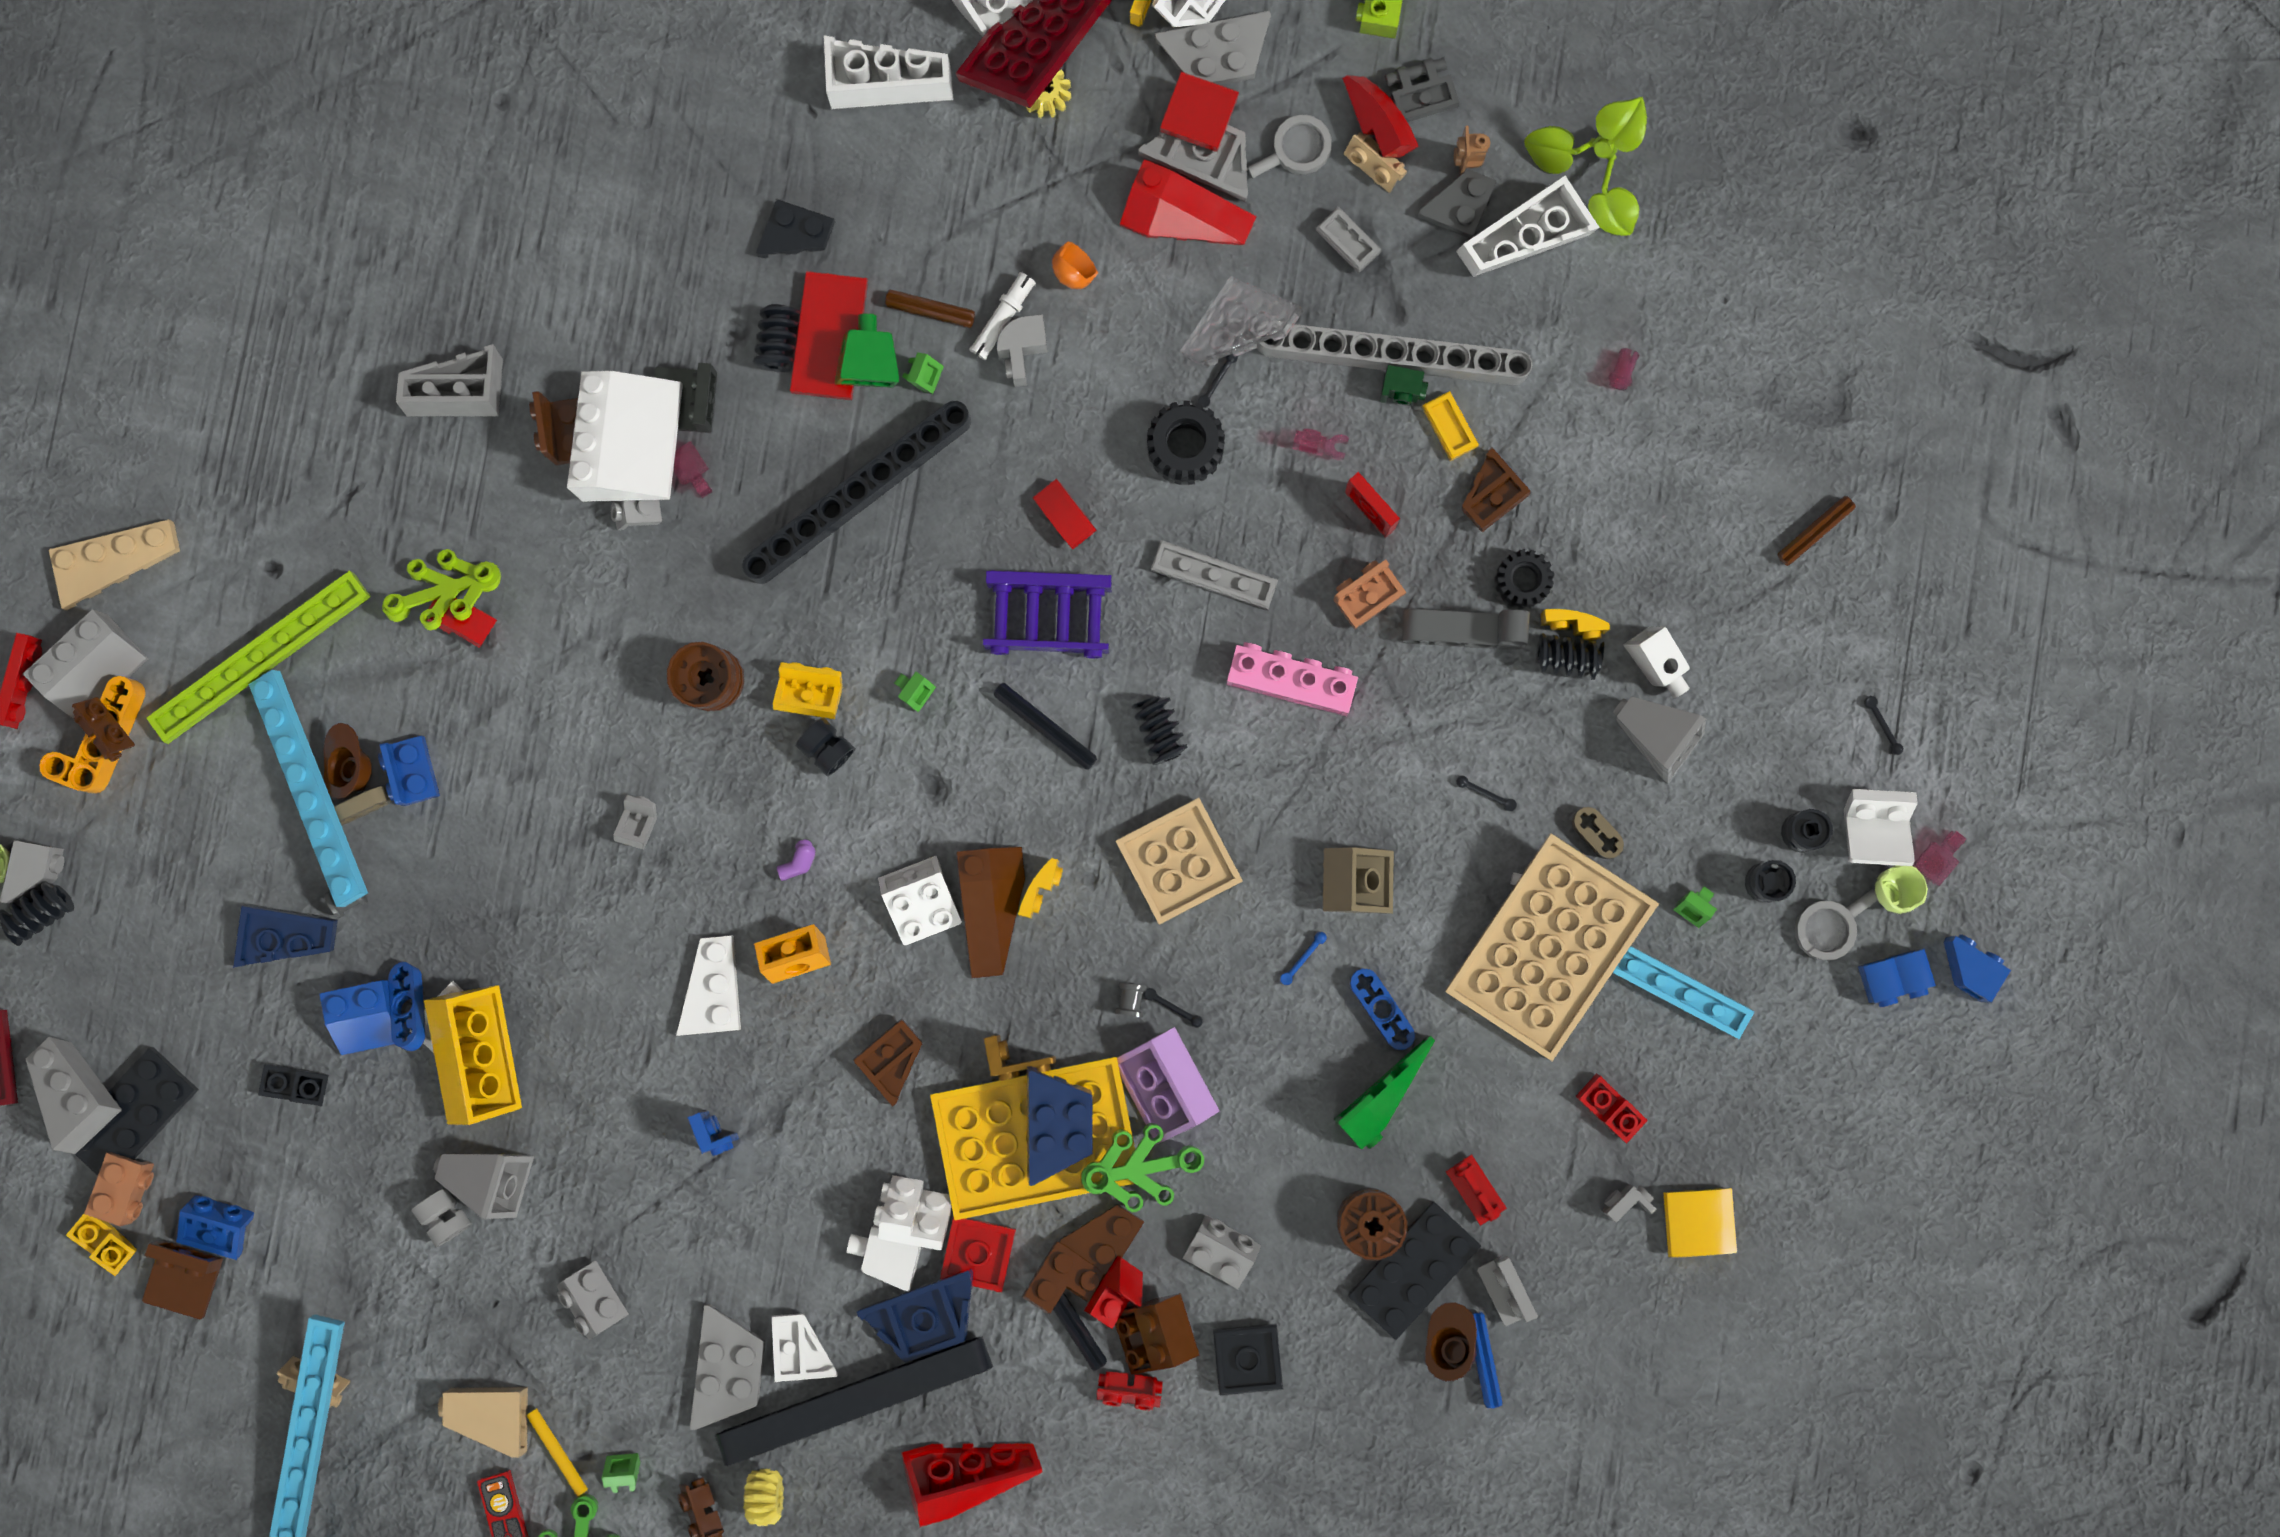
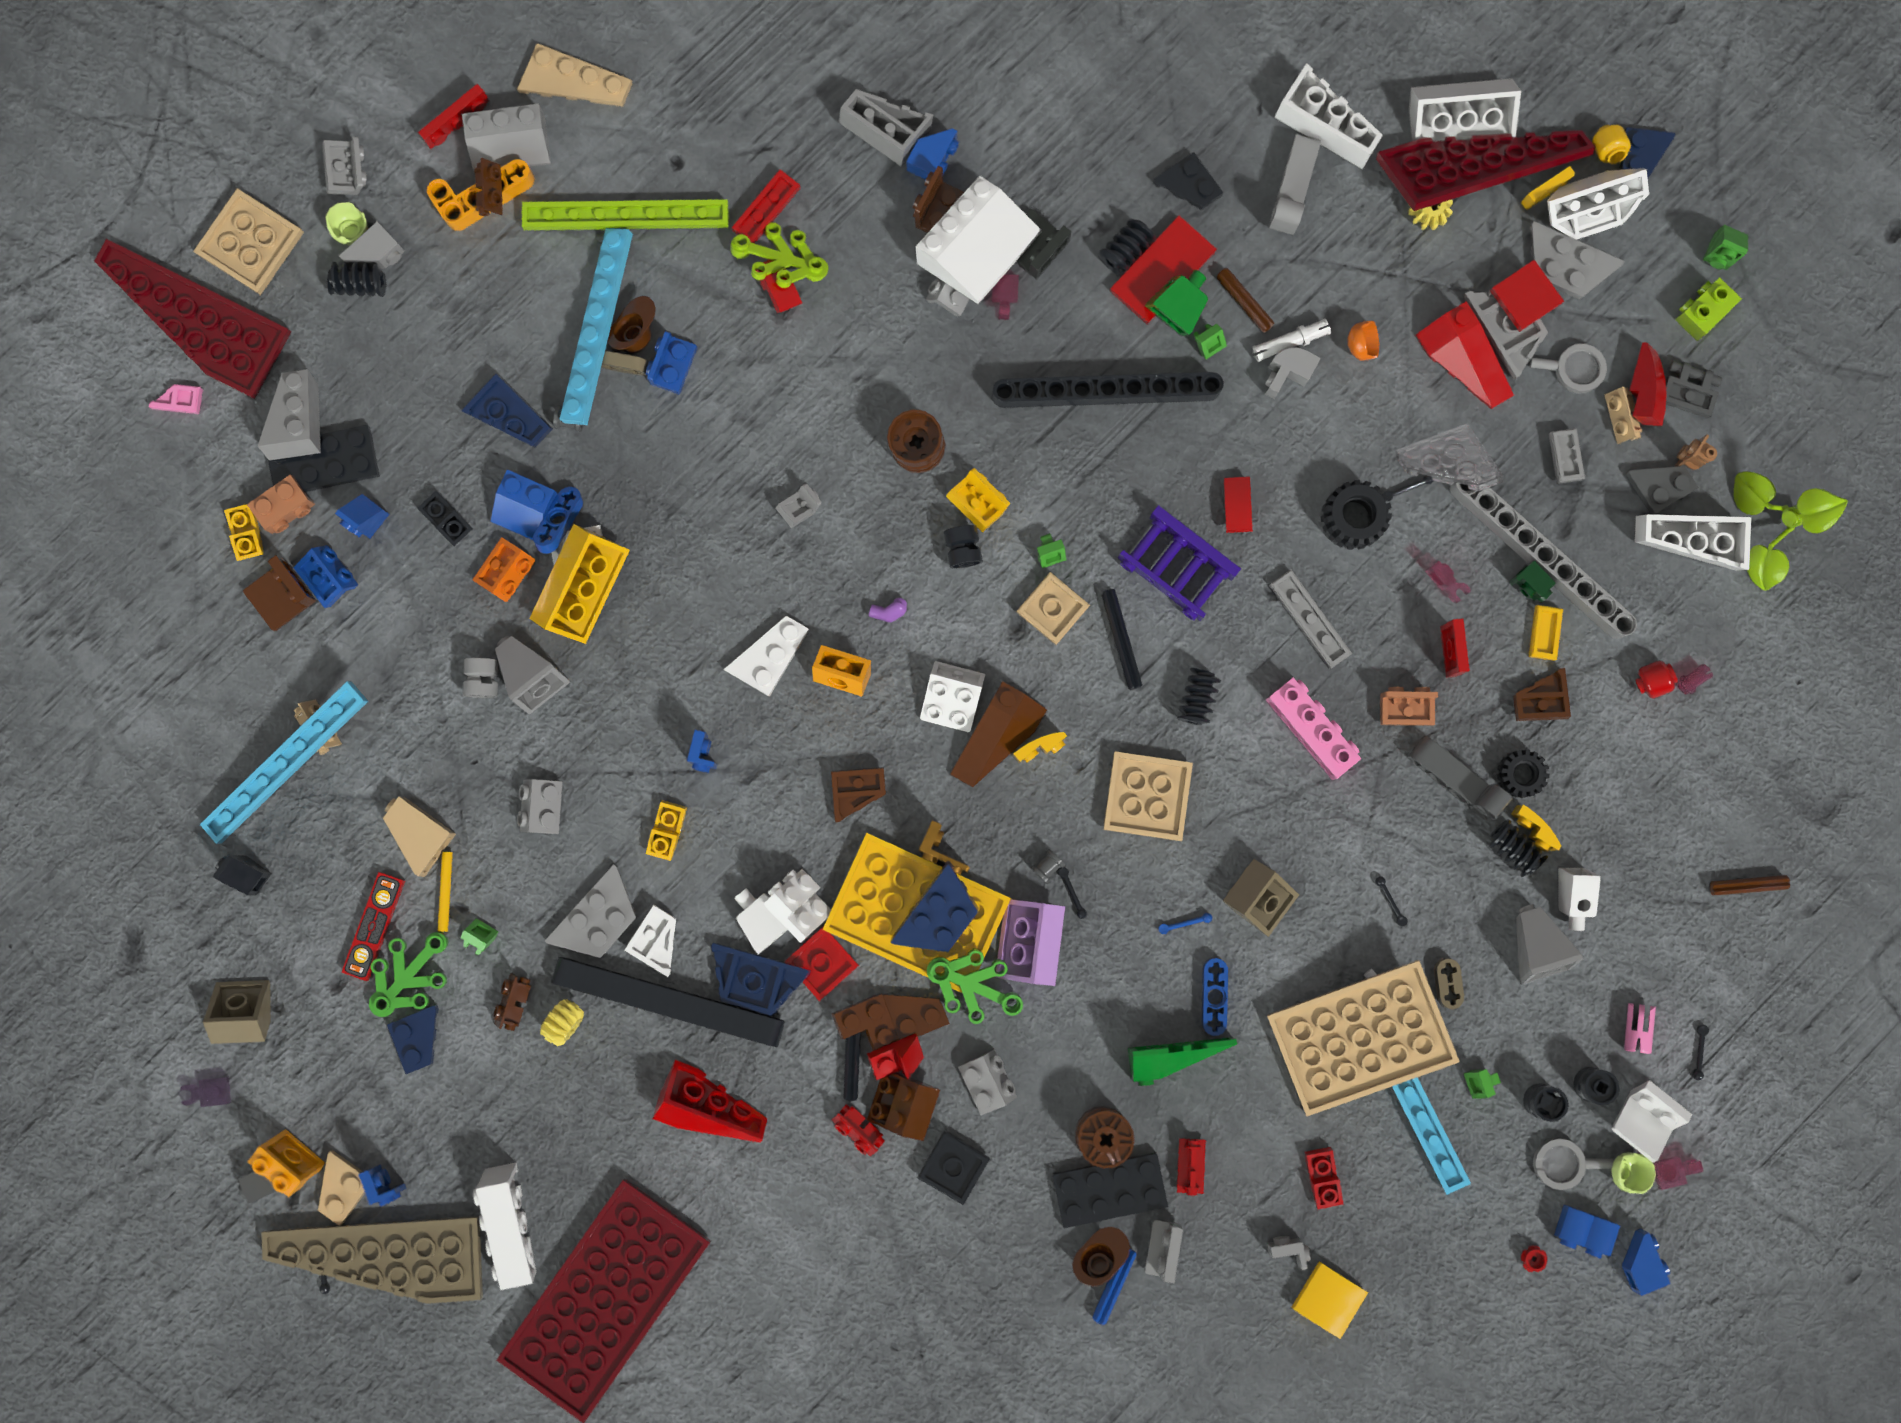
camera: 25 degrees right, 0 degrees up
(208, 1143) = (362, 516): none -> blue slope
(388, 1093) = (504, 569): none -> orange bracket
(393, 550) = (766, 206): none -> red plate
(519, 380) = (932, 152): none -> blue slope
(732, 1233) = (666, 830): none -> yellow slope
(897, 161) = (1294, 185): none -> light grey beam
(956, 744) = (1053, 608): none -> tan plate
(1587, 395) = (1656, 679): none -> red head
(1807, 757) = (1632, 1036): none -> bright pink arm
(1872, 1034) = (1540, 1262): none -> red plate

